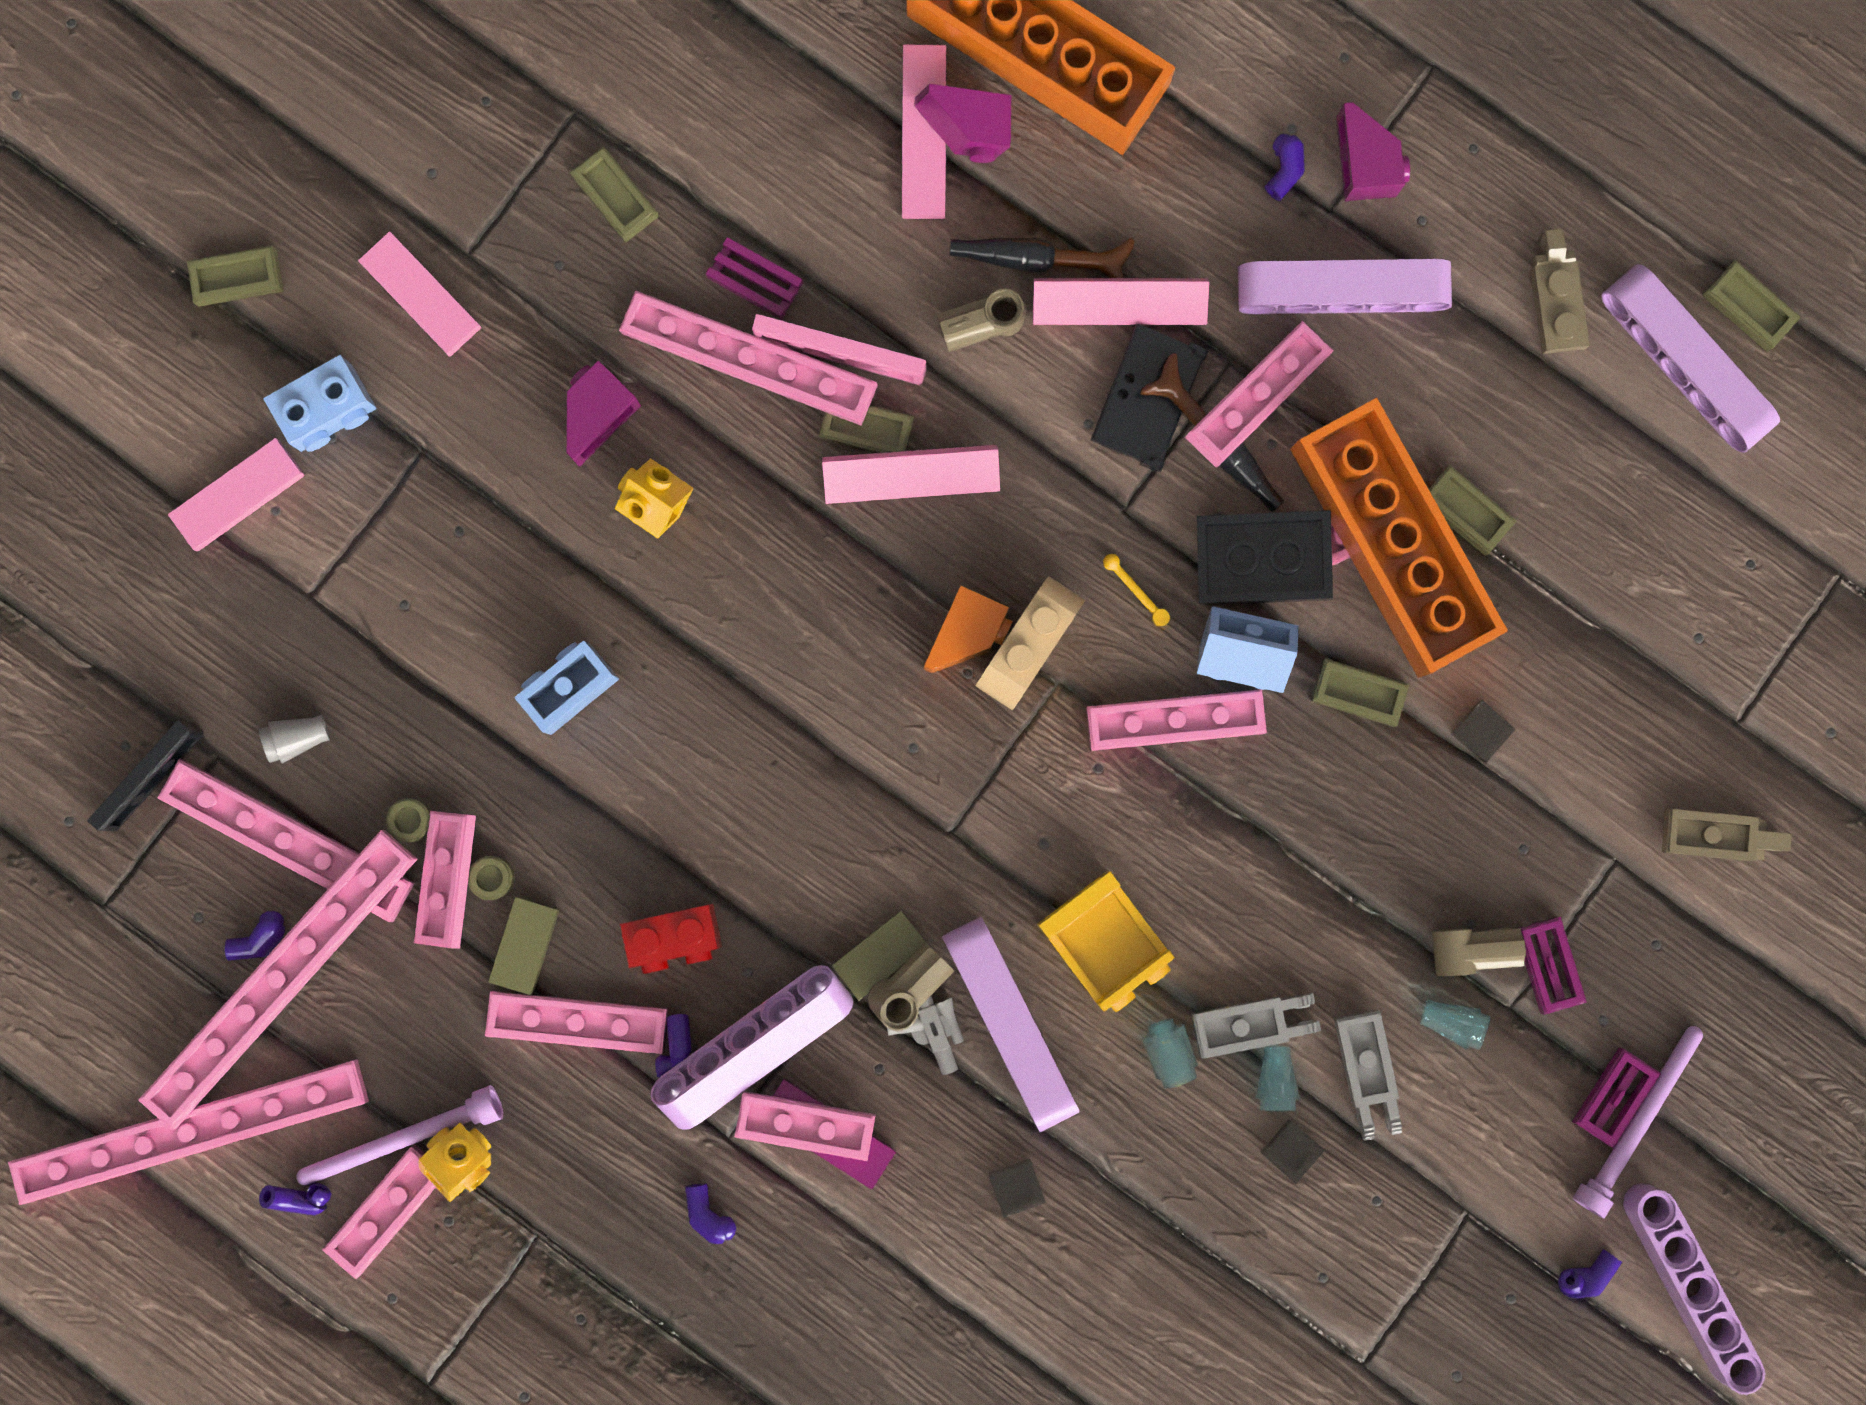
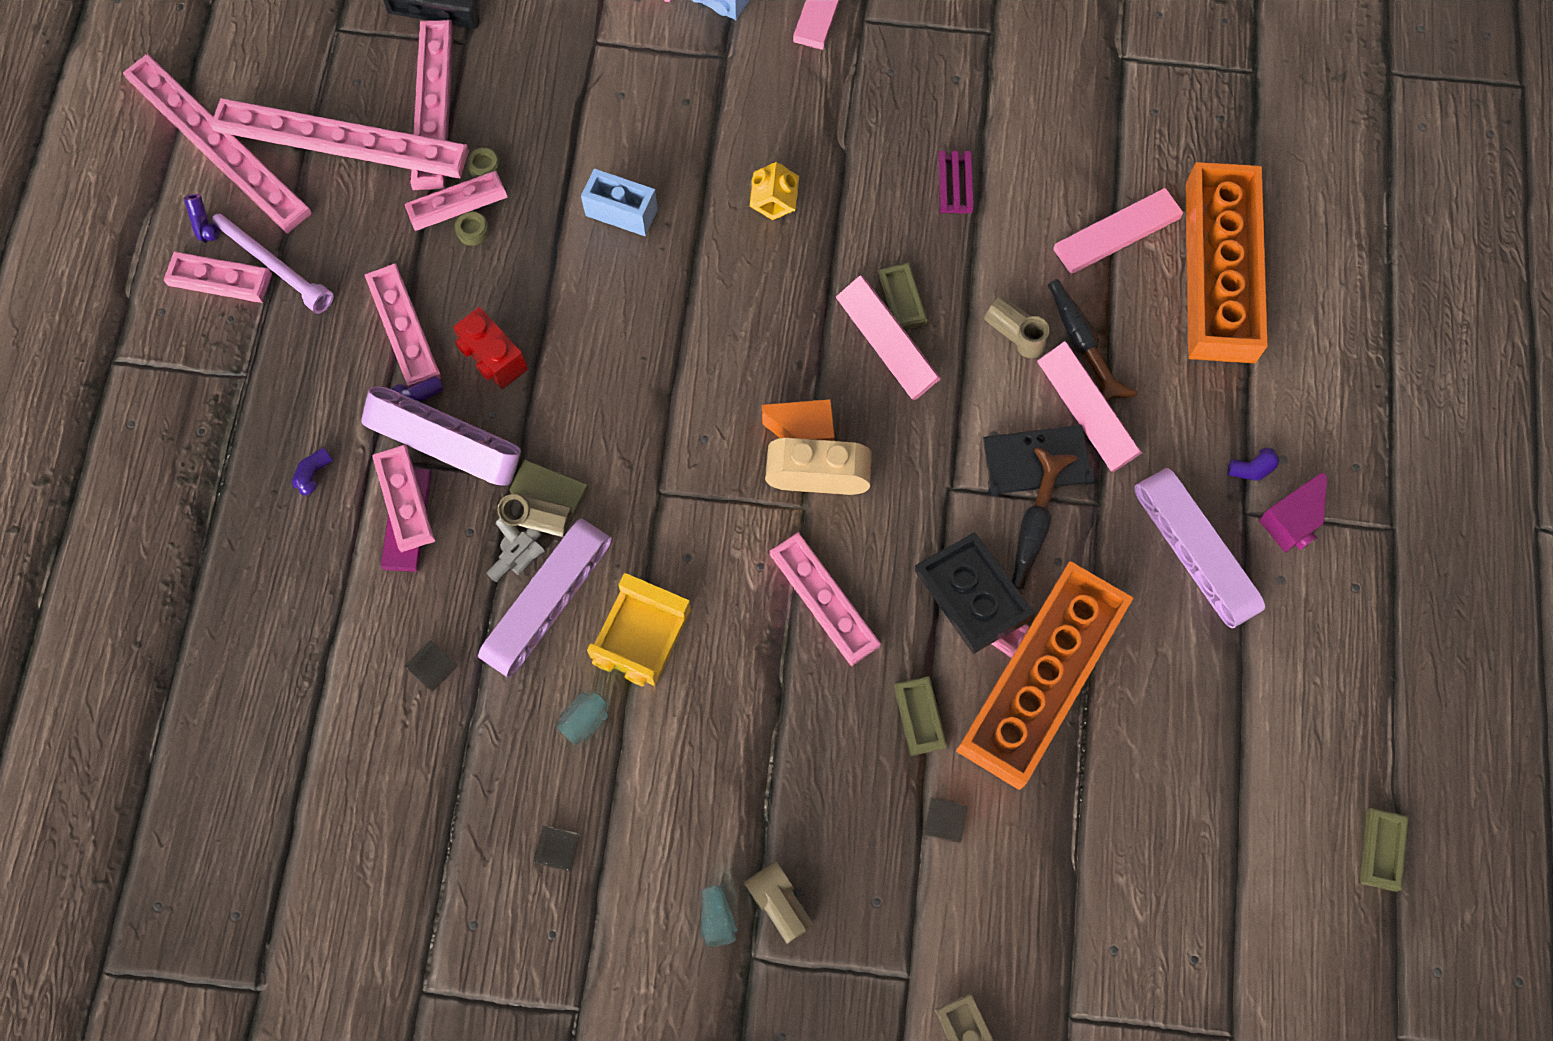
camera: 65 degrees right, 15 degrees down
(261, 941) = (361, 117): dark purple arm -> none
(289, 738) = (497, 70): light grey cone -> none
(454, 1176) = (270, 294): yellow brick -> none
(524, 945) = (437, 269): olive tile -> none
(595, 410) = (808, 132): magenta slope -> none
(614, 194) = (955, 78): olive tile -> none
(748, 358) = (901, 204): bright pink tile -> none
(840, 349) = (941, 252): bright pink tile -> none
(968, 120) = (1143, 246): magenta slope -> none
(1159, 616) = (890, 549): yellow hinge -> none
(1247, 649) = (901, 613): light blue brick -> none
(1250, 1025) = (633, 765): light grey hinge -> none
(1259, 394) = (1085, 527): bright pink tile -> none
(1277, 1081) = (601, 807): clear light blue cone -> none
(1368, 1069) = (646, 870): light grey hinge -> none
(1470, 510) = (1098, 721): olive tile -> none
(1558, 296) = (1293, 702): dark tan hinge -> none
(1568, 964) = (777, 993): magenta tile -> none
(1690, 358) = (1314, 823): lavender beam -> none

